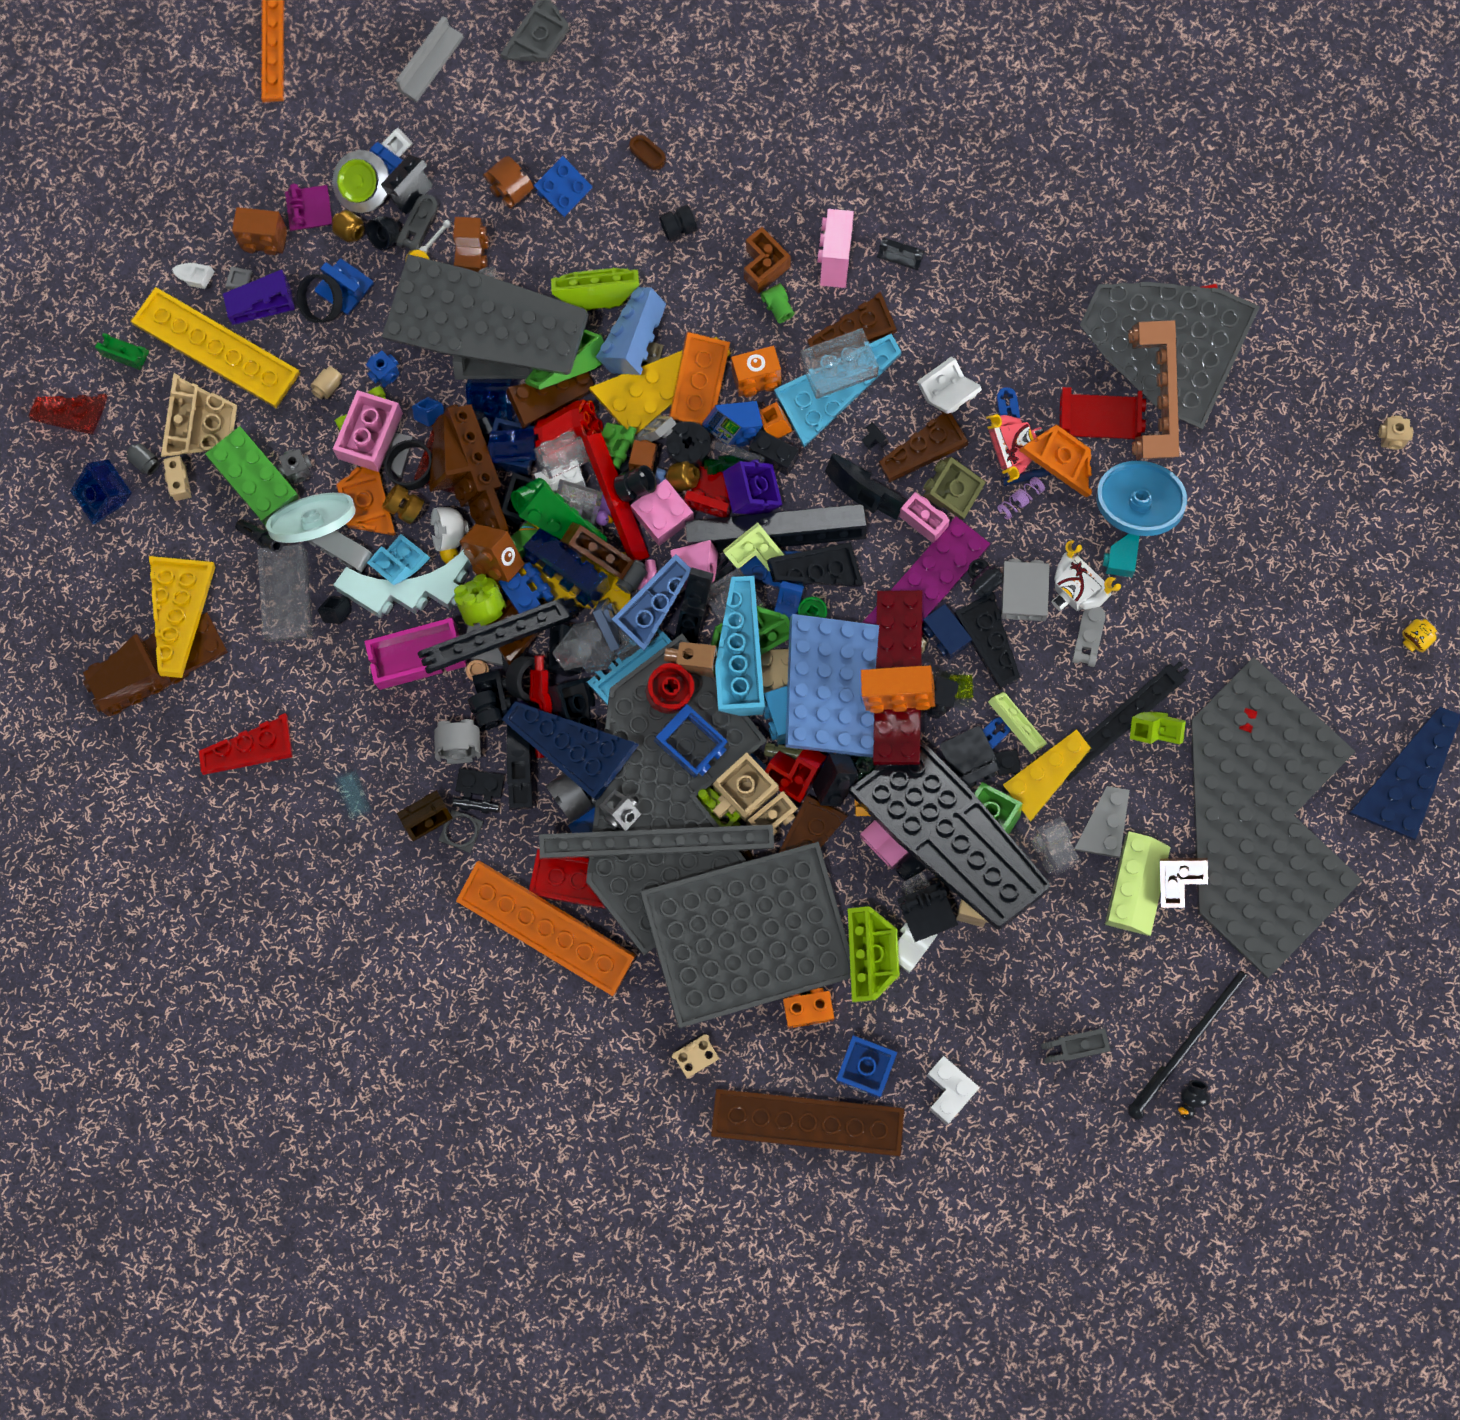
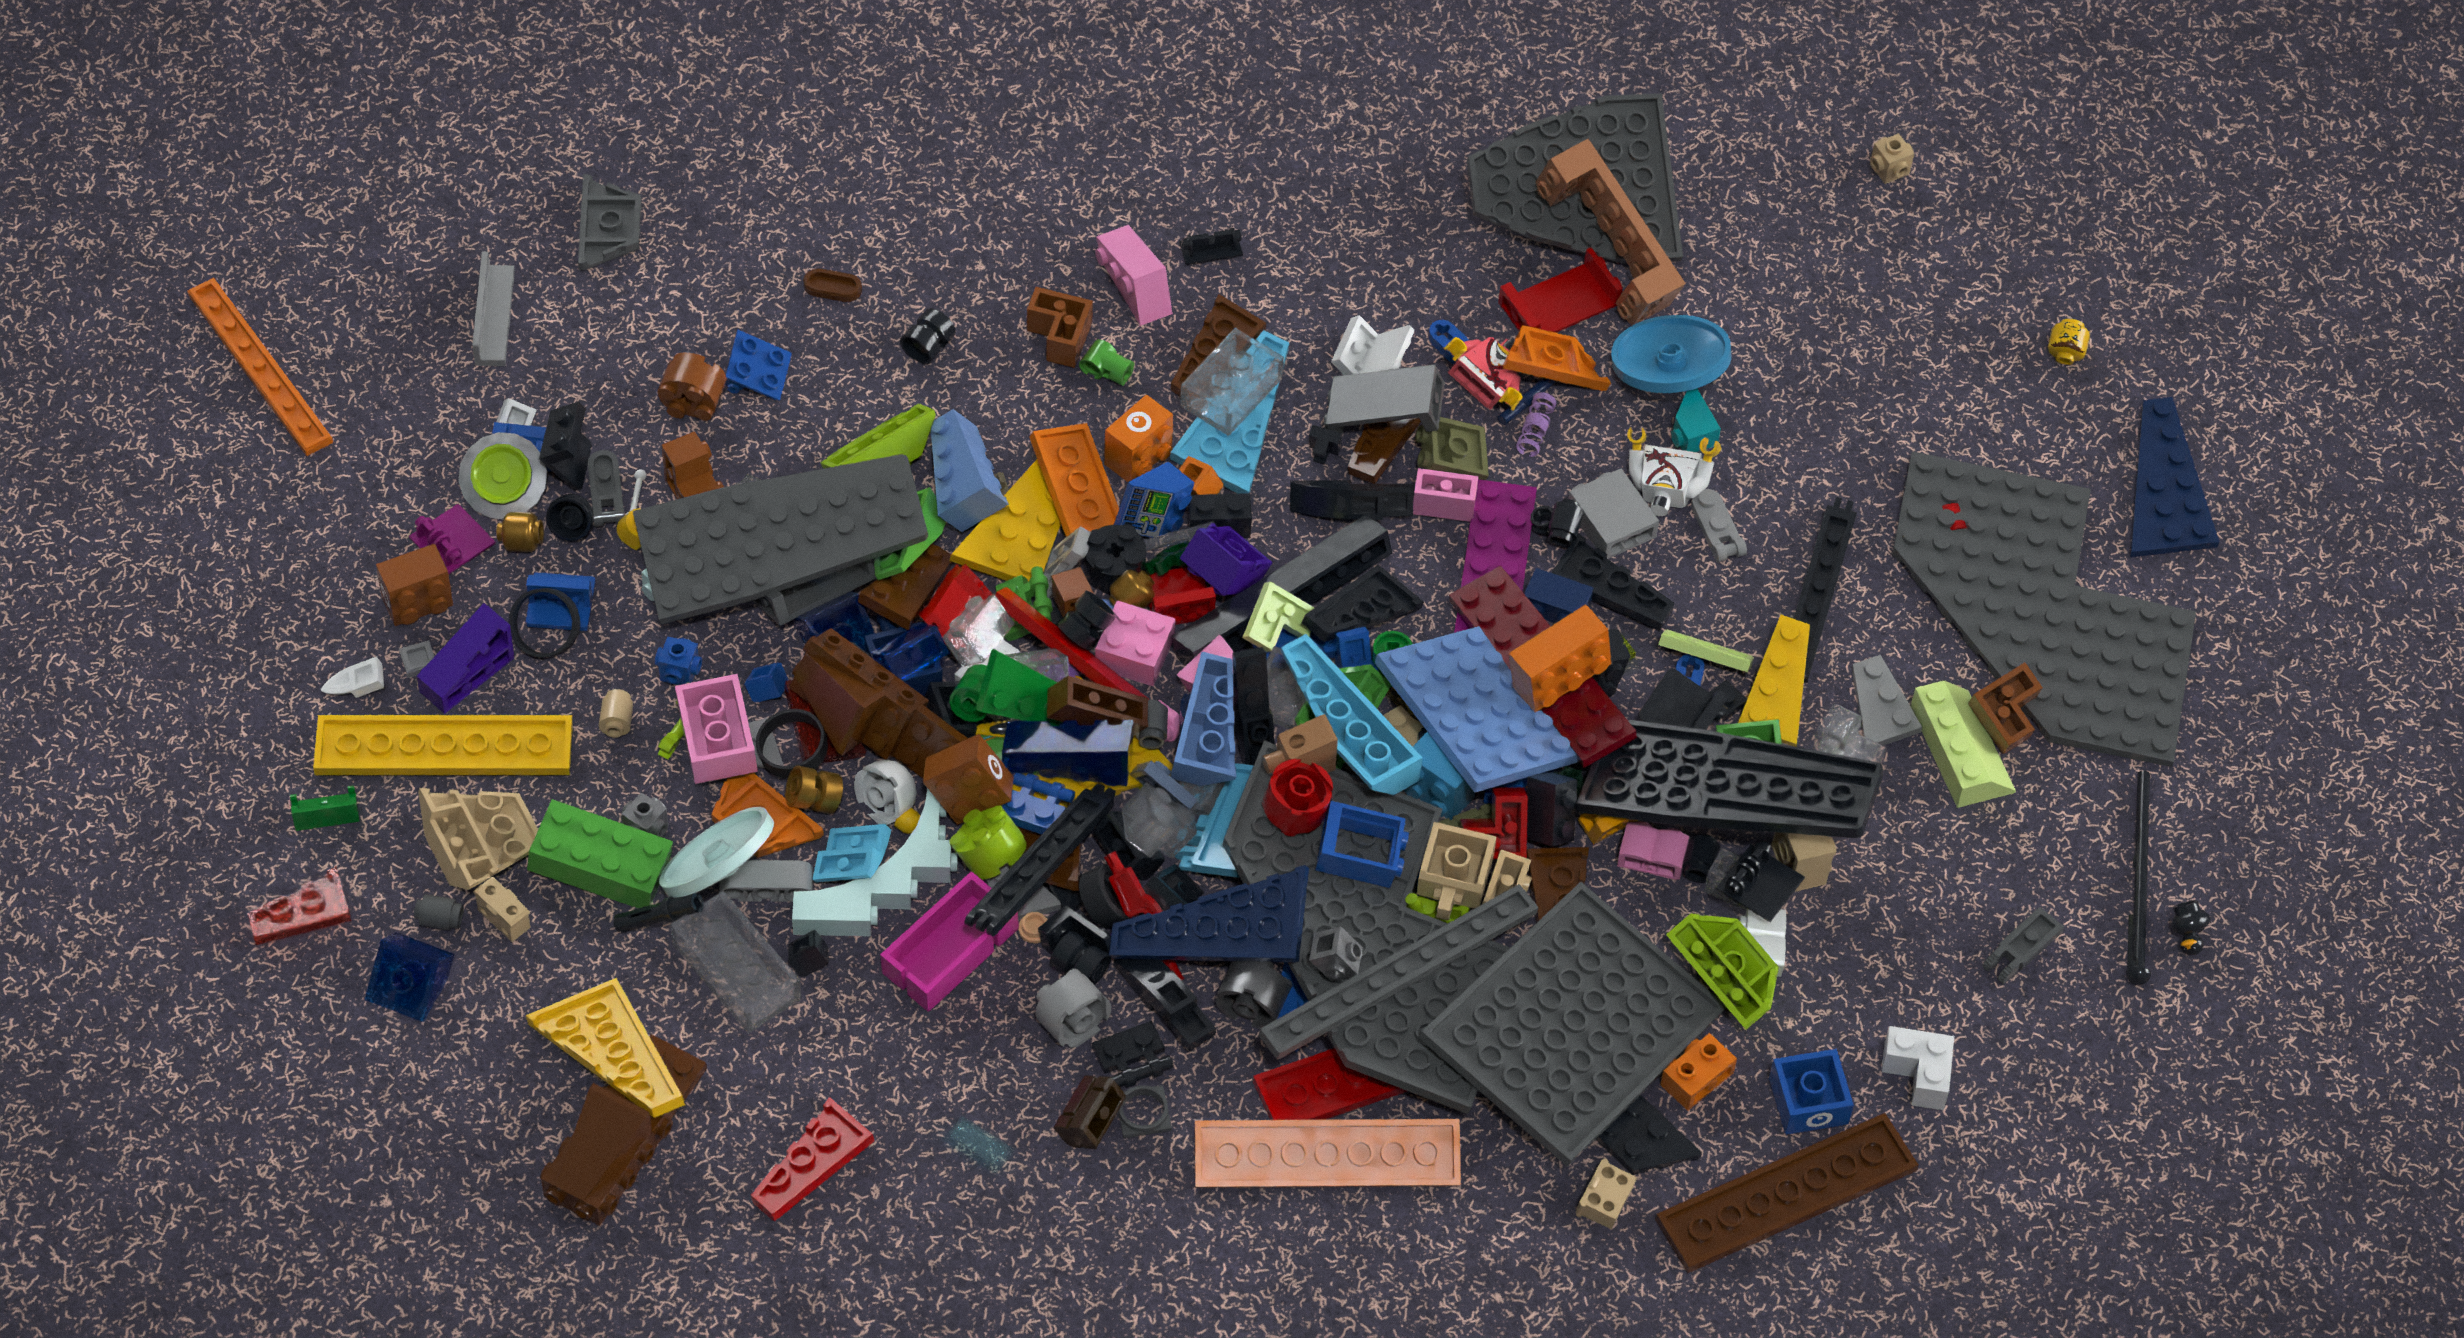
camera: 40 degrees left, 20 degrees down
(747, 1034) = (1646, 1139): none -> black wing
(929, 430) = (1386, 397): none -> panel
(1156, 726) = (1867, 571): lime brick -> none

